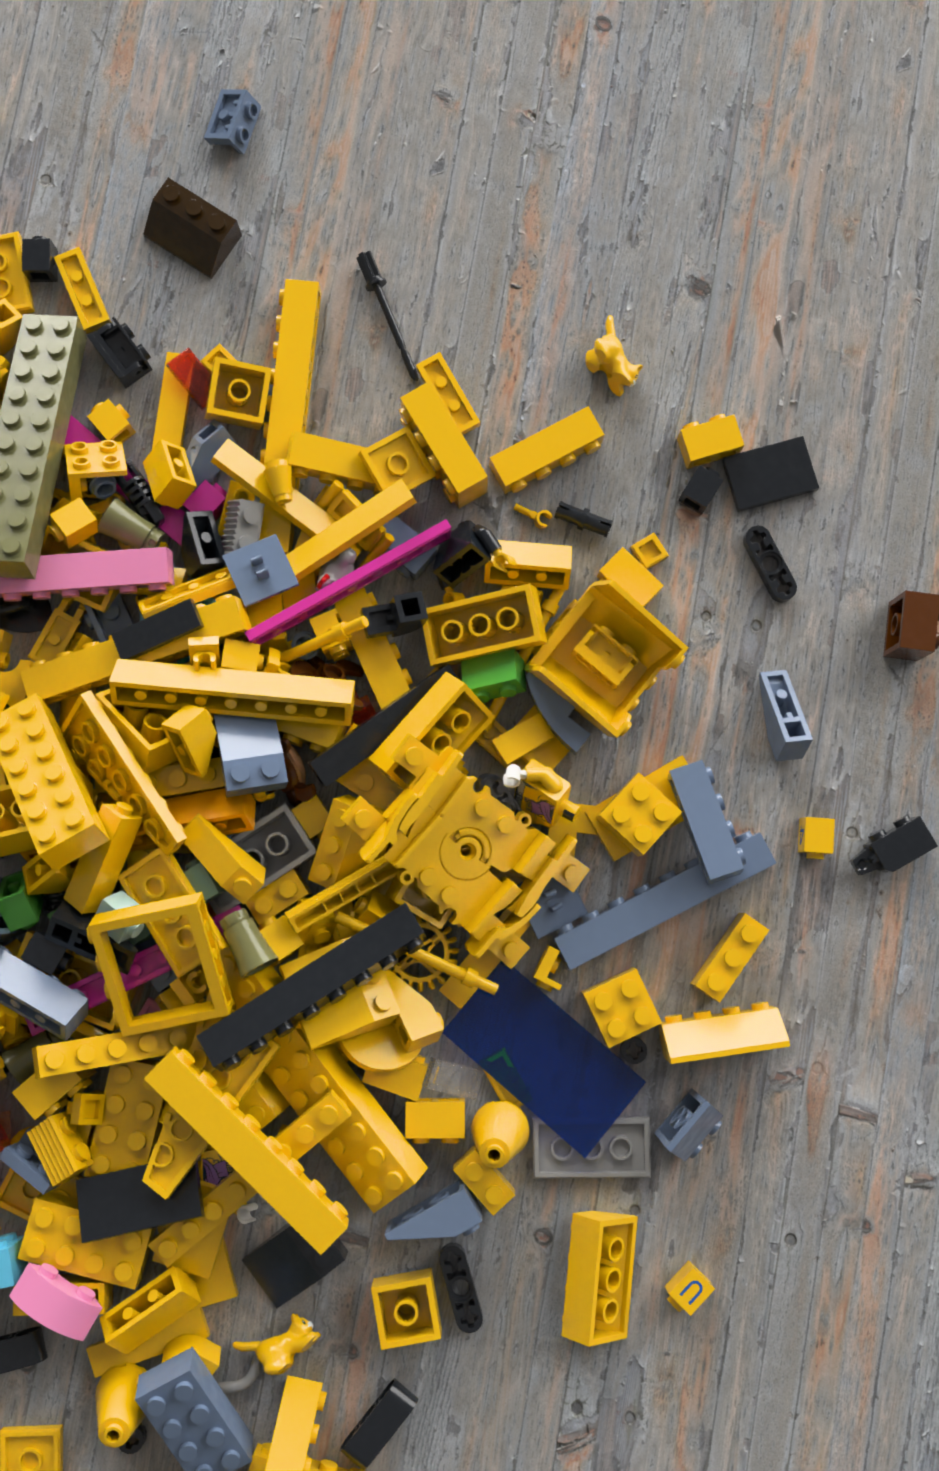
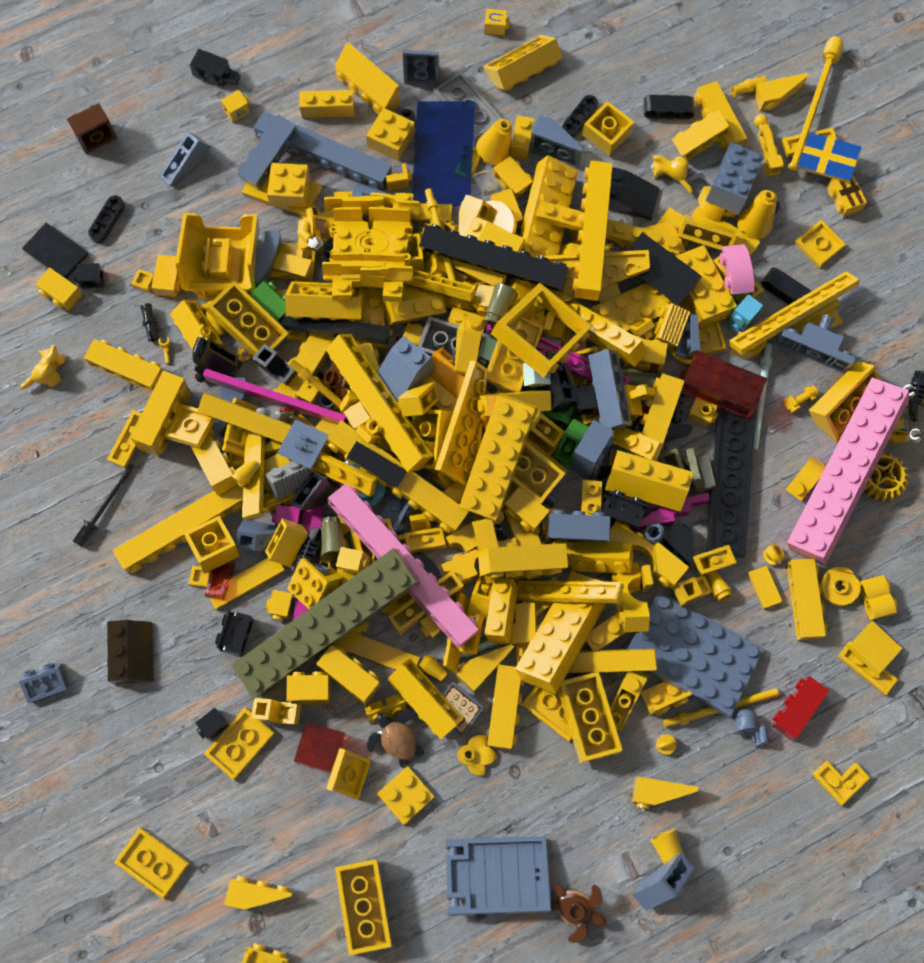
camera: 130 degrees left, 10 degrees down
(82, 290) = (212, 685): yellow plate -> none

